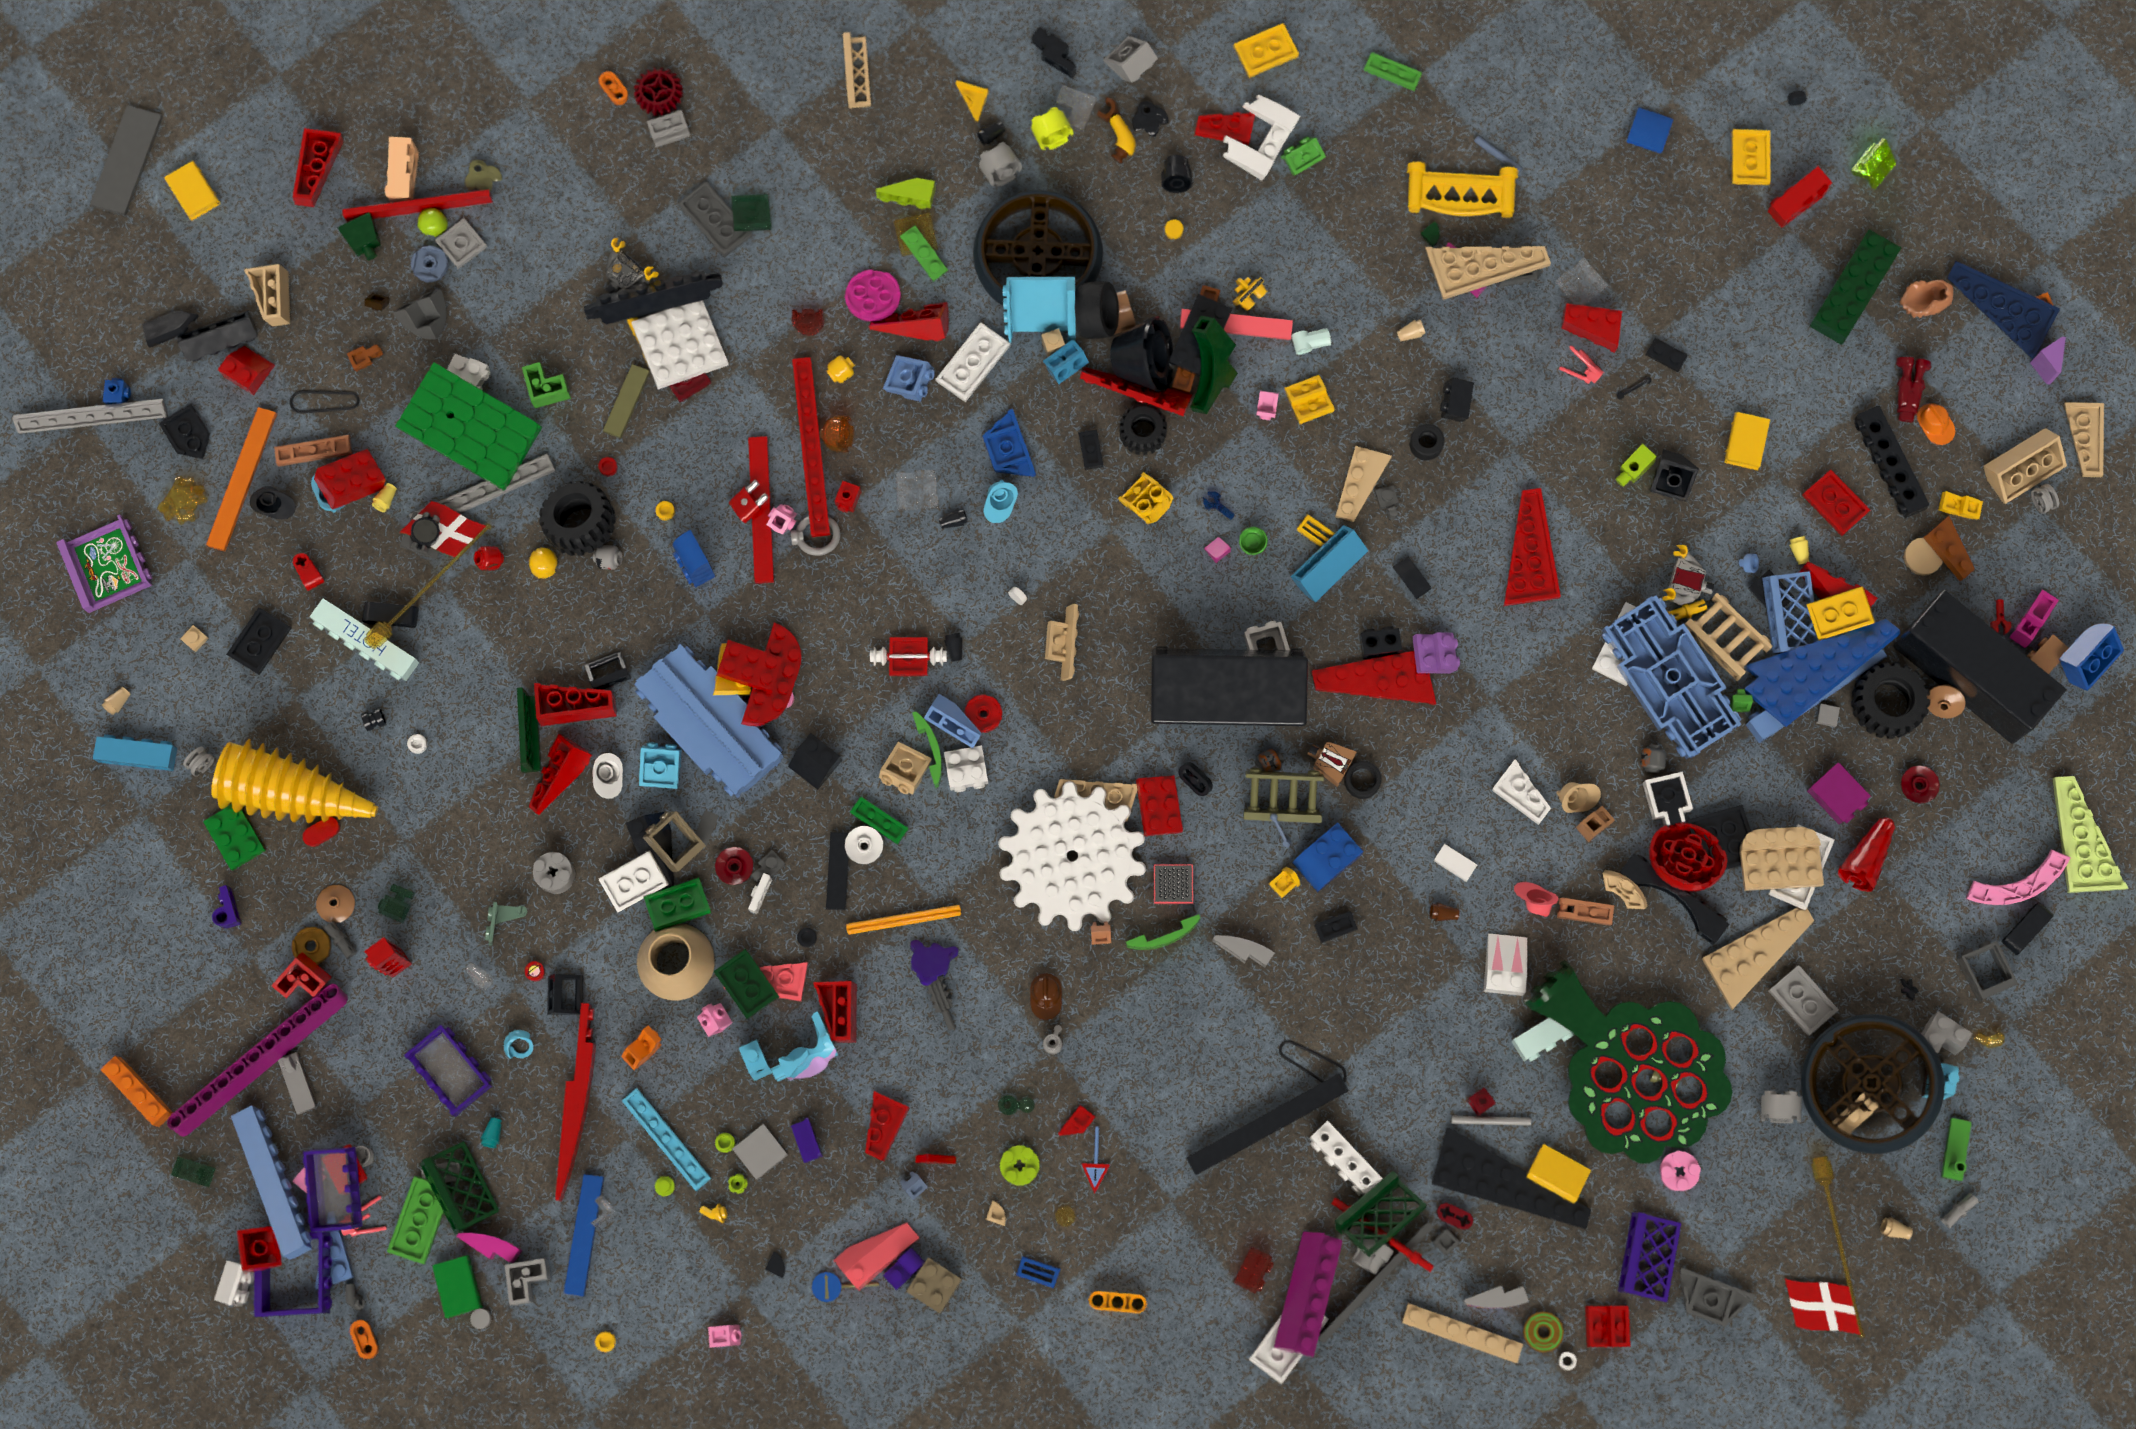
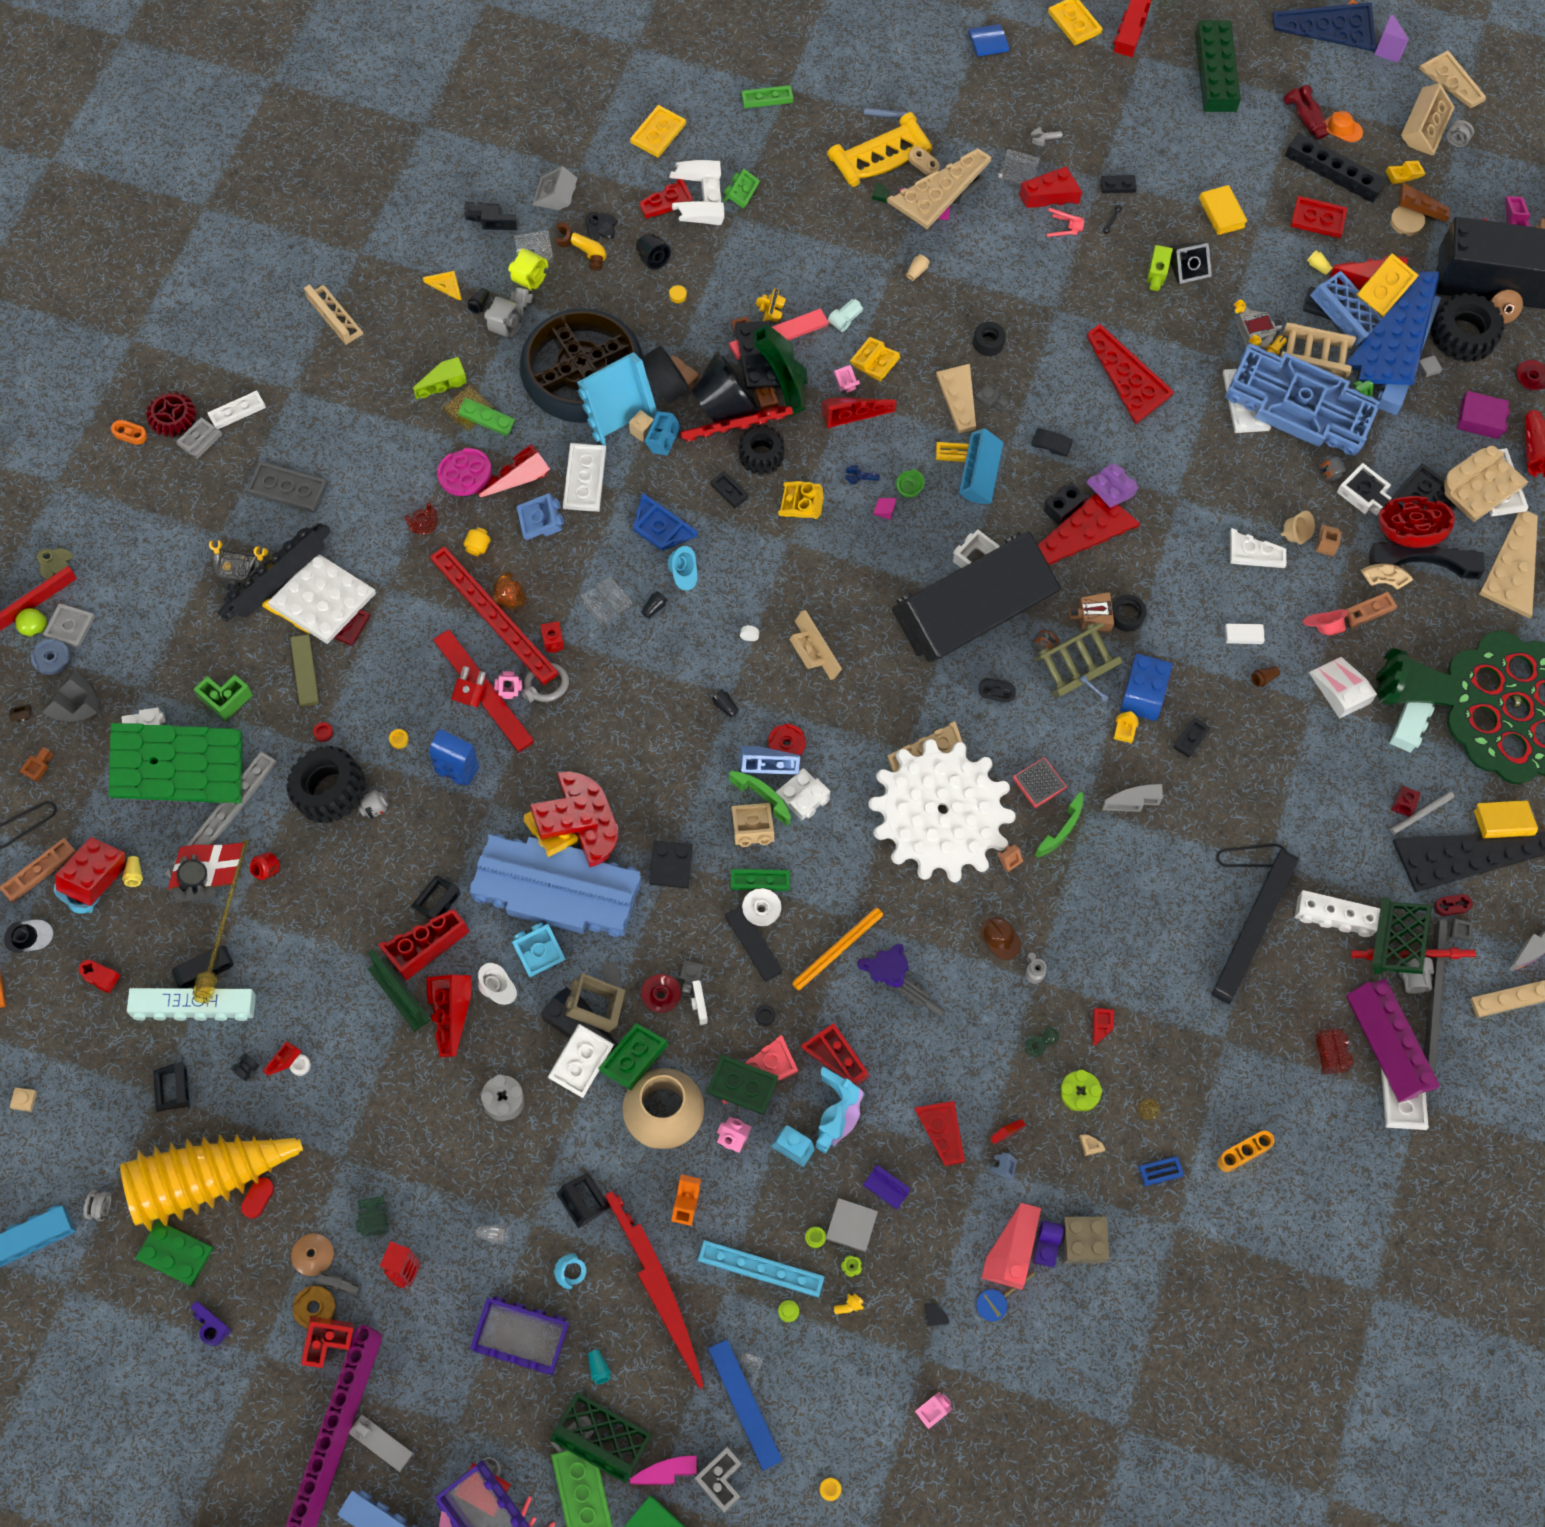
camera: 40 degrees left, 10 degrees down
(259, 641) = (89, 1064): black plate -> none
(316, 704) = (182, 1089): none -> black tile
(406, 730) = (282, 1059): none -> red tile
(500, 914) = (477, 1164): sand green plate -> none
(534, 971) = (541, 1197): tile -> none
(543, 562) = (316, 843): yellow hair -> none
(715, 119) = (236, 410): none -> white plate
(751, 212) = (315, 464): clear green tile -> none
(908, 656) = (692, 733): red plate -> none
(1029, 152) = (521, 296): none -> light grey gear
(1095, 1172) = (1145, 1056): piece -> none
(1159, 805) = (983, 728): red plate -> none
(1245, 435) = (848, 410): none -> red wedge
(1456, 399) = (990, 295): black brick -> none
(1492, 226) = (924, 161): none -> tan plate
(1631, 264) = (1044, 136): none -> light grey bar
(1750, 563) = (1291, 292): medium blue tile -> none
(1927, 298) = (1273, 45): nougat piece -> none

